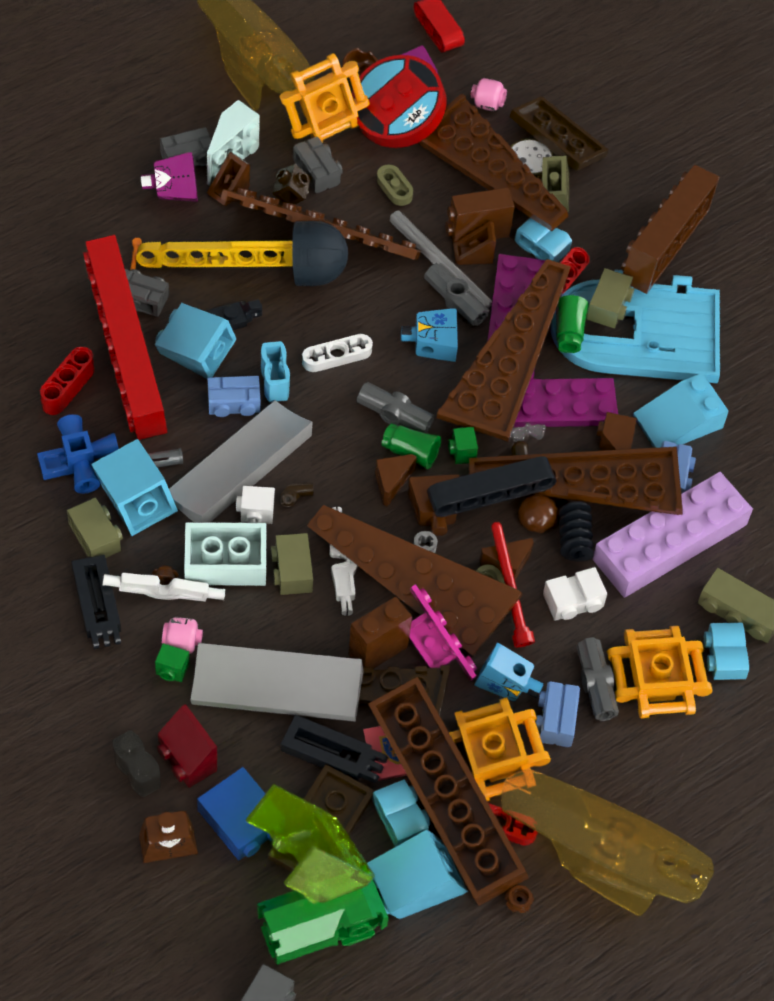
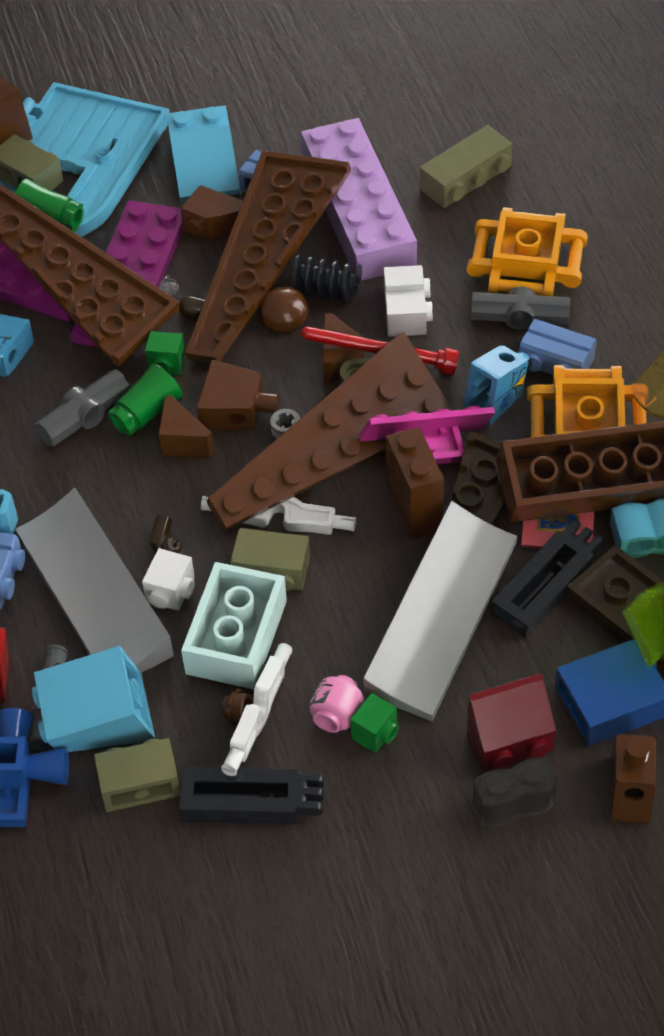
camera: 65 degrees left, 5 degrees down
(491, 486) = (248, 327): black beam -> none
(727, 651) = (517, 189): medium azure brick -> none

